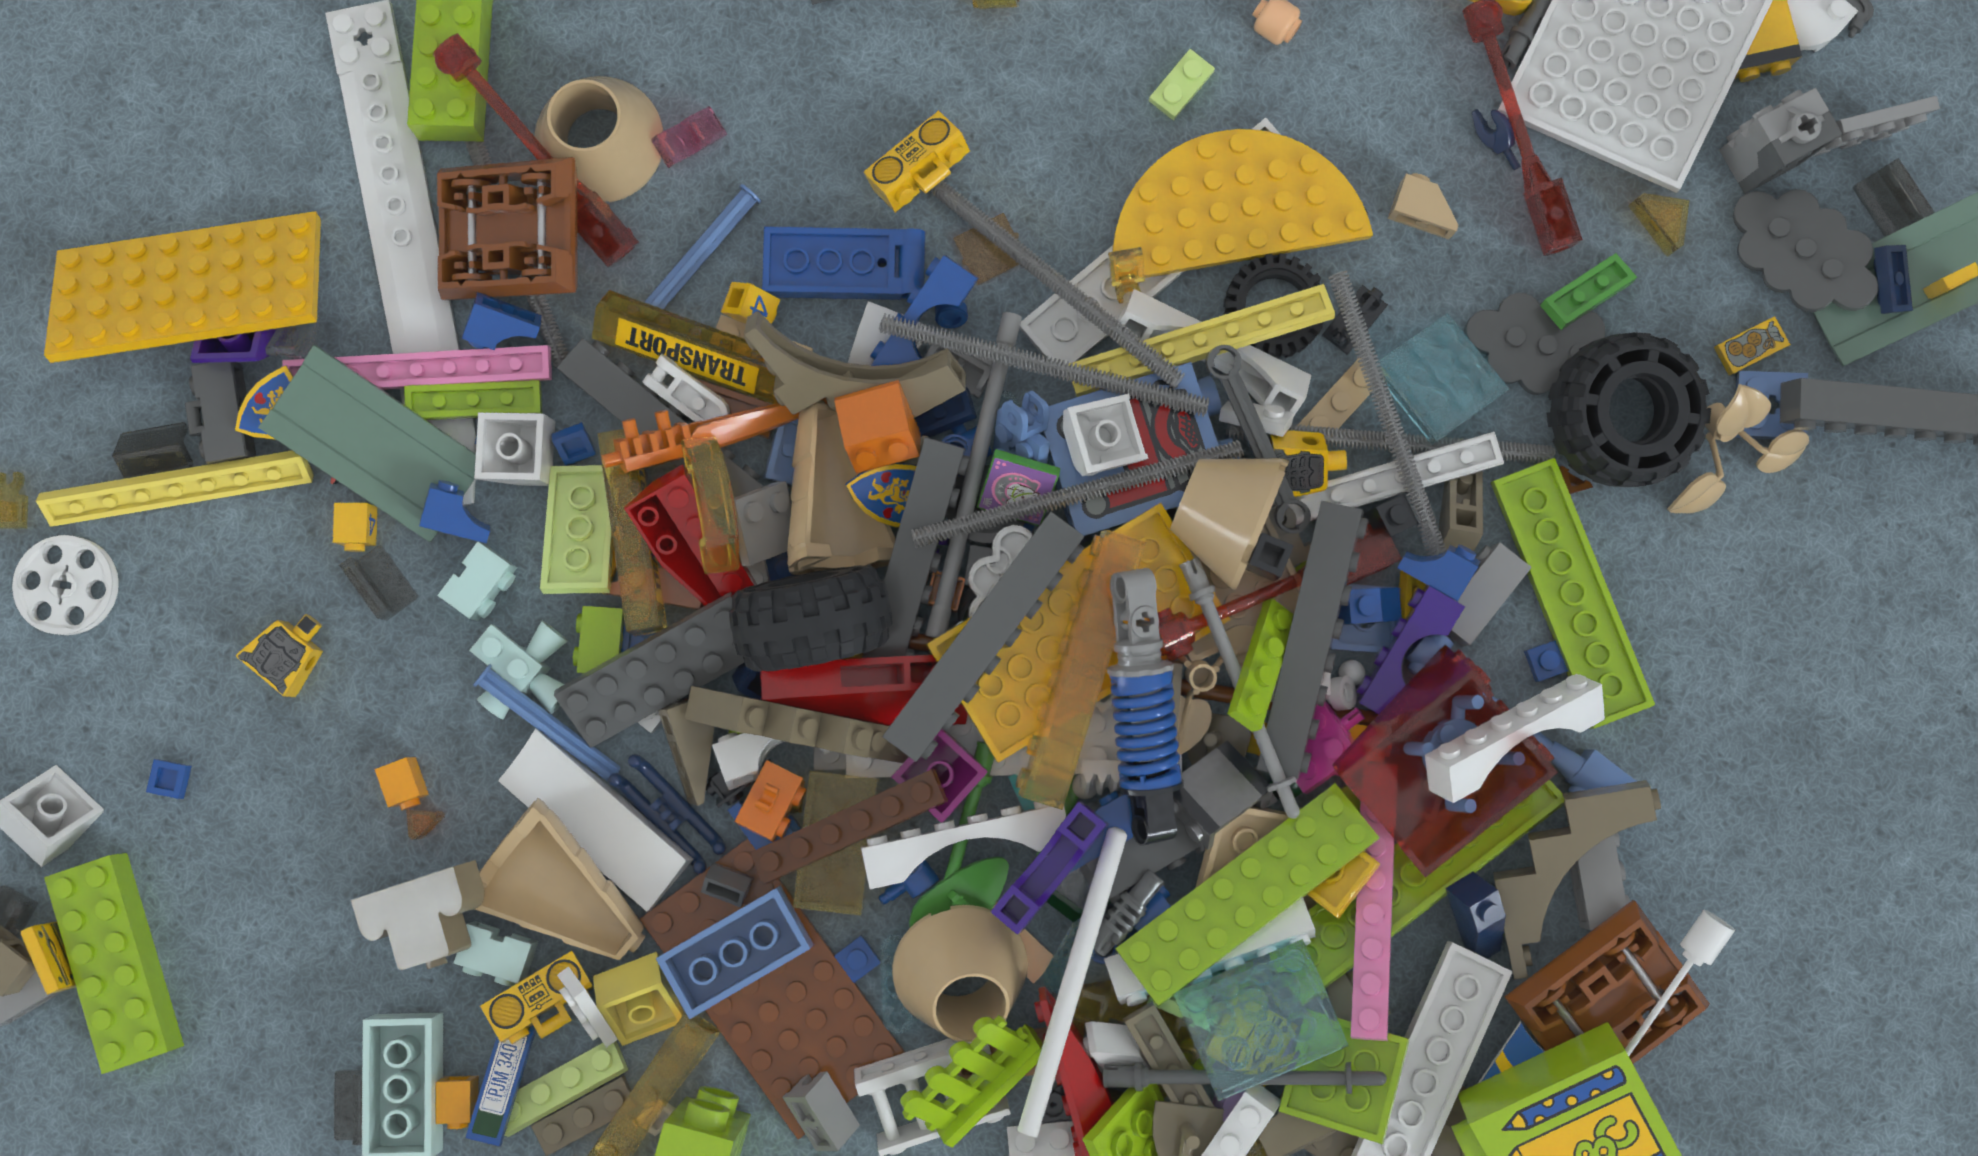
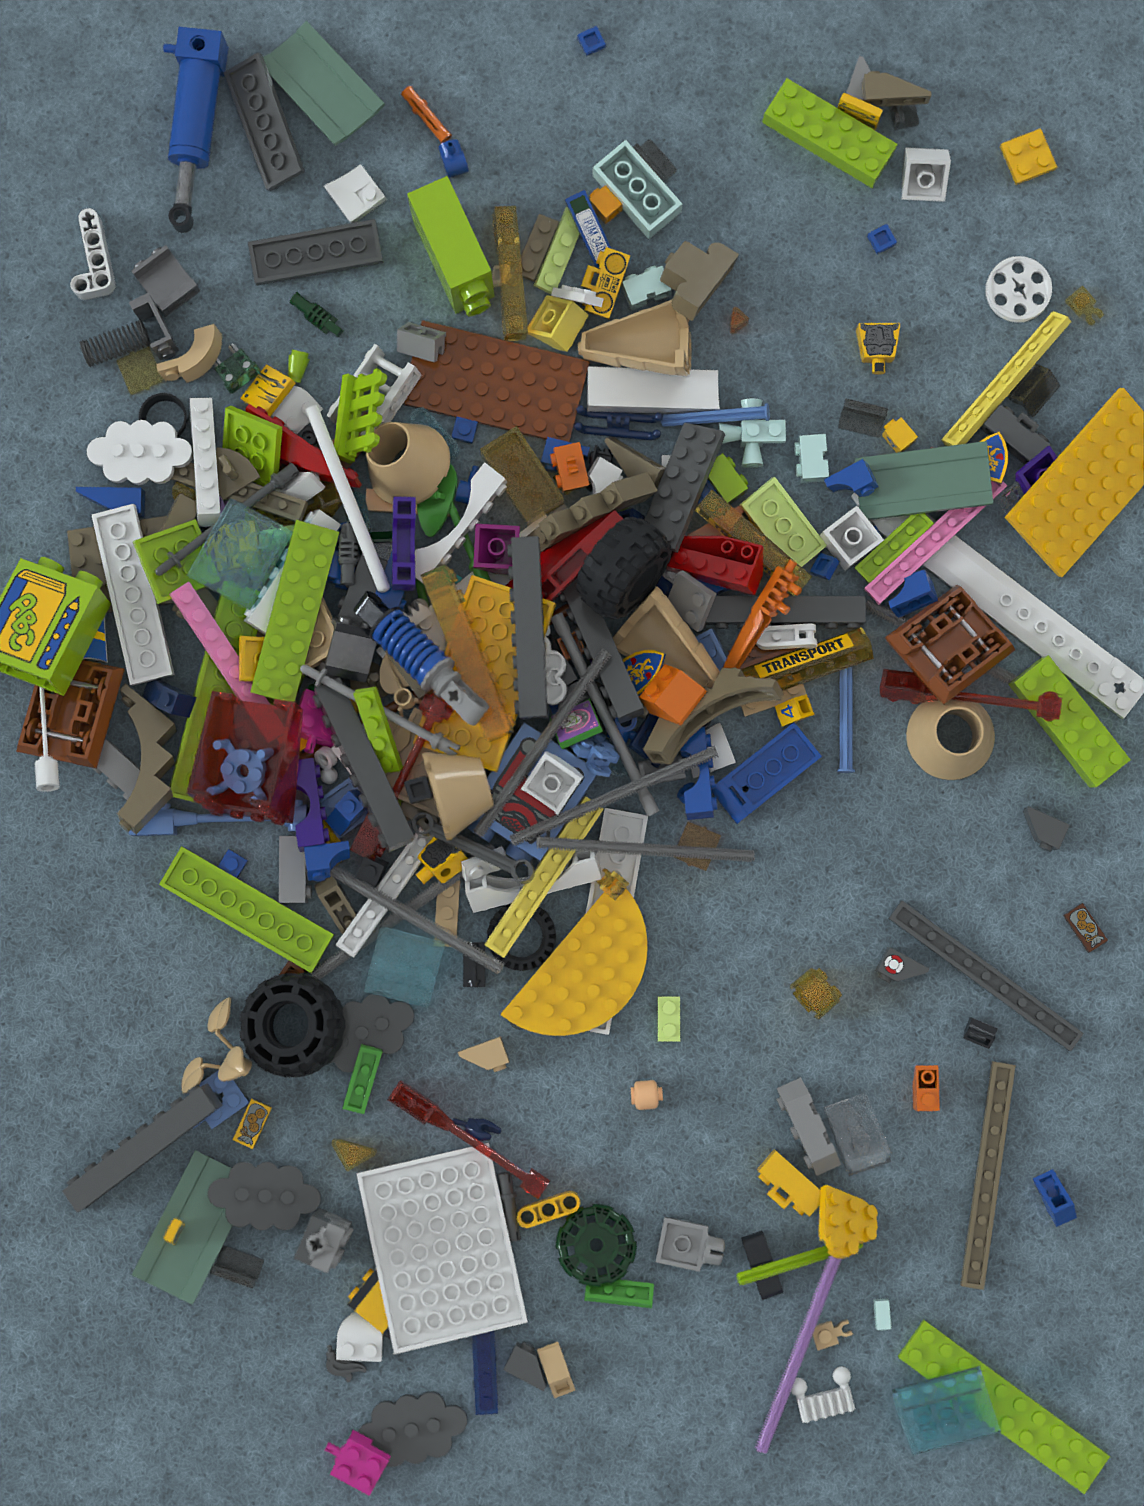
camera: 145 degrees right, 0 degrees up
(402, 783) = (763, 330): light orange brick -> none
(689, 137) = (903, 774): clear pink slope -> none
(714, 503) = (720, 586): clear yellow slope -> none
(727, 884) = (559, 411): dark grey piece -> none
(735, 952) = (527, 381): medium blue brick -> none
(849, 826) = (520, 485): reddish brown plate -> none
(917, 162) = (771, 857): yellow piece -> none
(1466, 761) = (236, 766): white arch -> none
(1881, 123) = (280, 1289): light grey plate -> none
(1893, 279) = (205, 1213): dark blue plate -> none

